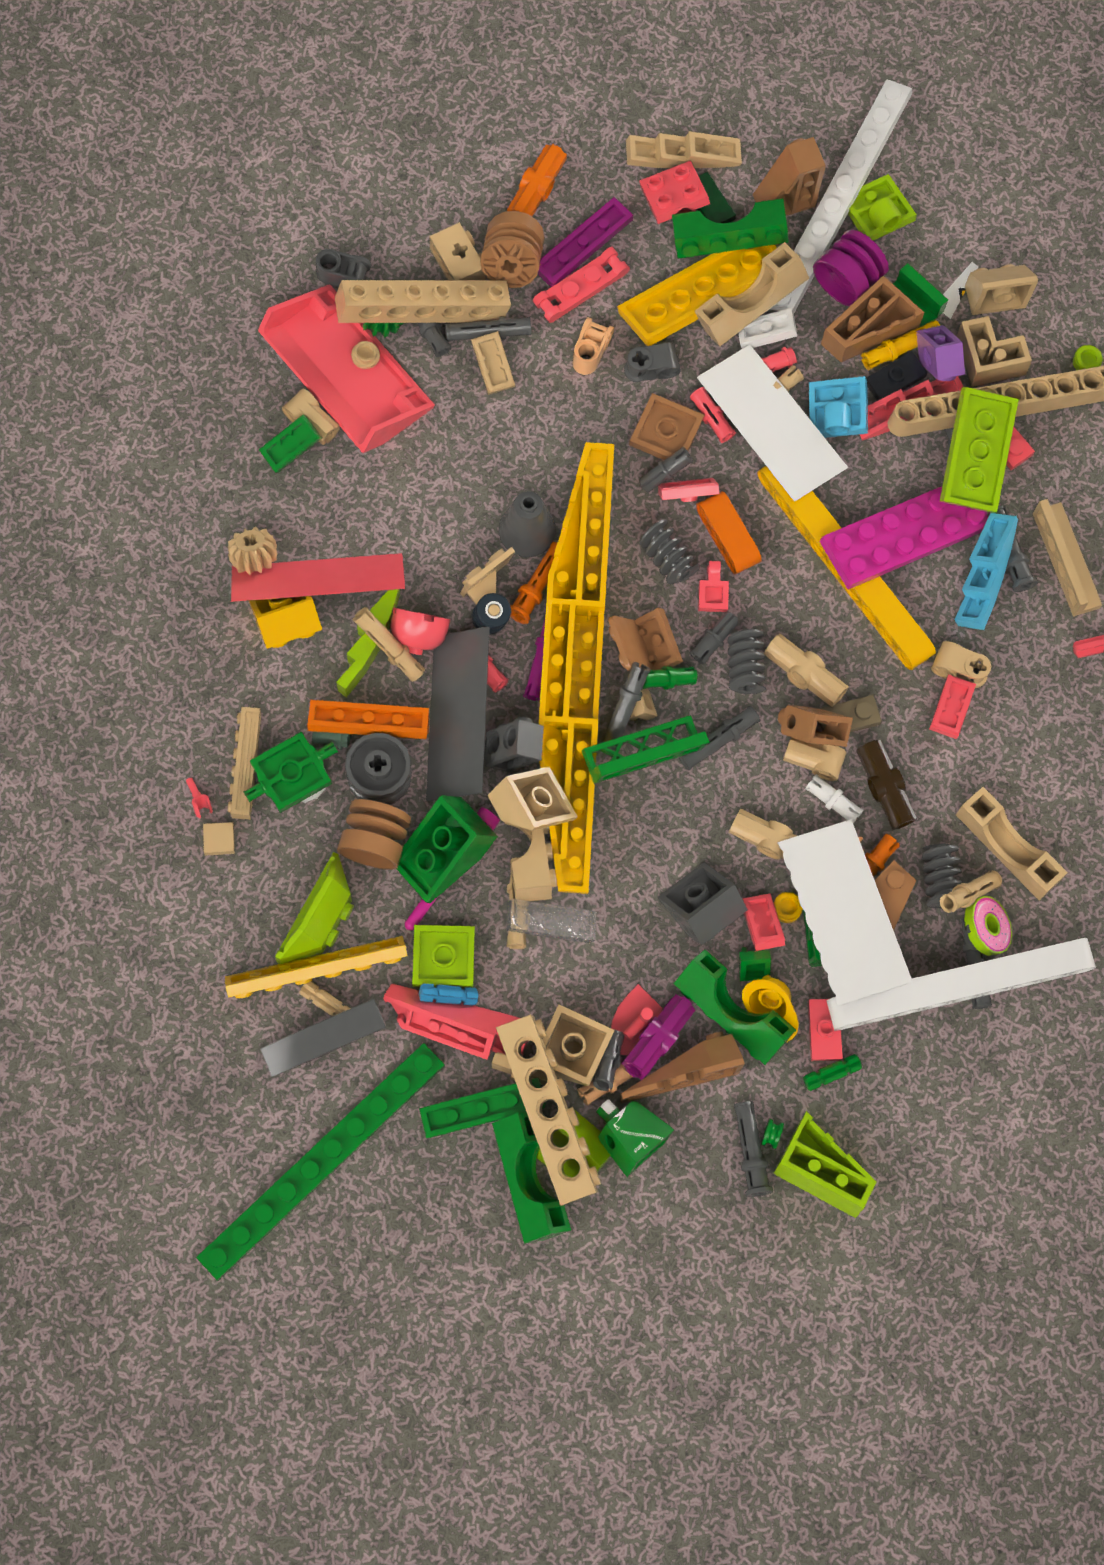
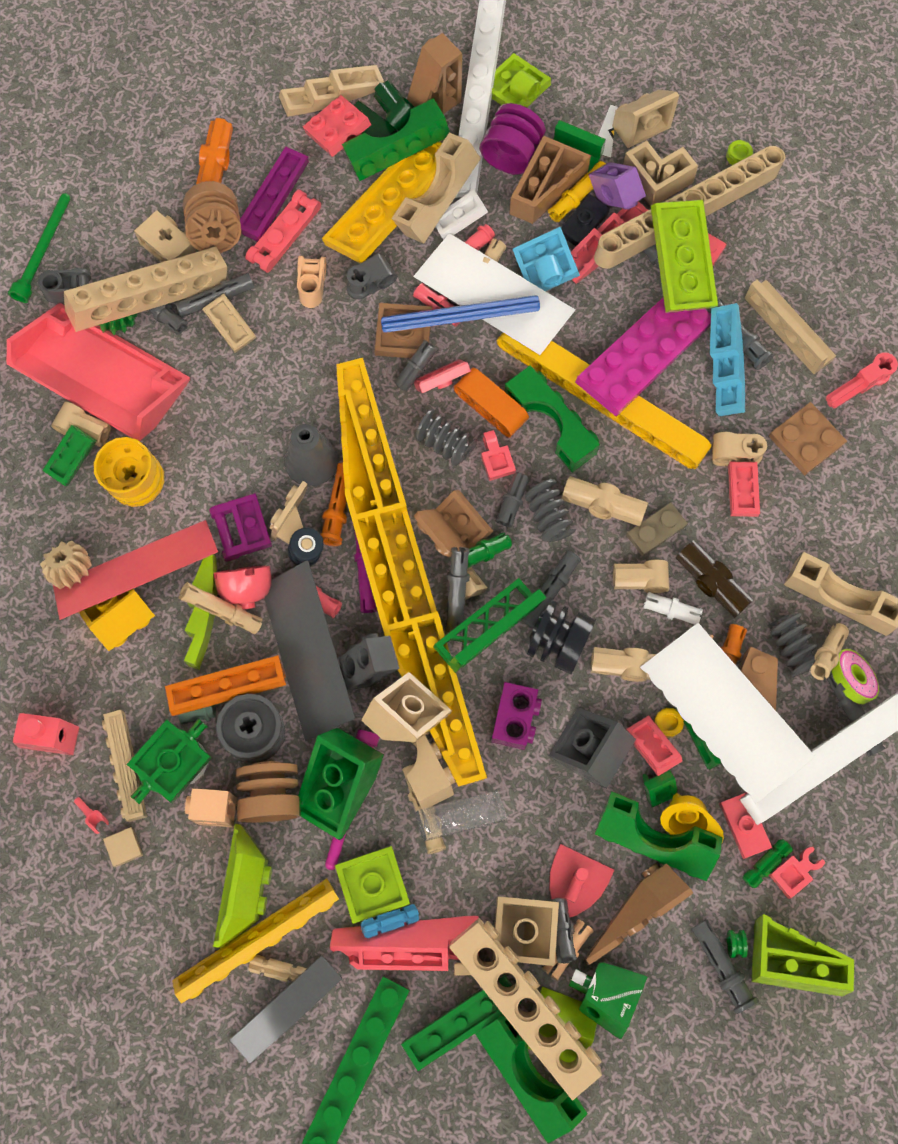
camera: 15 degrees left, 0 degrees up
(178, 705) = (43, 732): none -> coral torso
(295, 258) = (21, 288): none -> green piece
(316, 829) = (211, 807): none -> light nougat brick
(339, 466) = (121, 460): none -> yellow wheel
(365, 355) = (112, 353): tan plate -> none
(444, 572) = (249, 523): none -> magenta plate
(632, 844) = (509, 715): none -> magenta brick
(658, 1036) = (599, 891): magenta piece -> none
(710, 786) = (560, 636): none -> black wheel
(729, 432) = (460, 313): none -> axle
(742, 189) = (394, 104): none -> dark green piece
(773, 538) = (576, 442): none -> green arch
(801, 724) = (623, 548): medium nougat torso -> none
(853, 1091) = (793, 874): none -> coral plate
(1039, 679) = (807, 438): none -> medium nougat plate

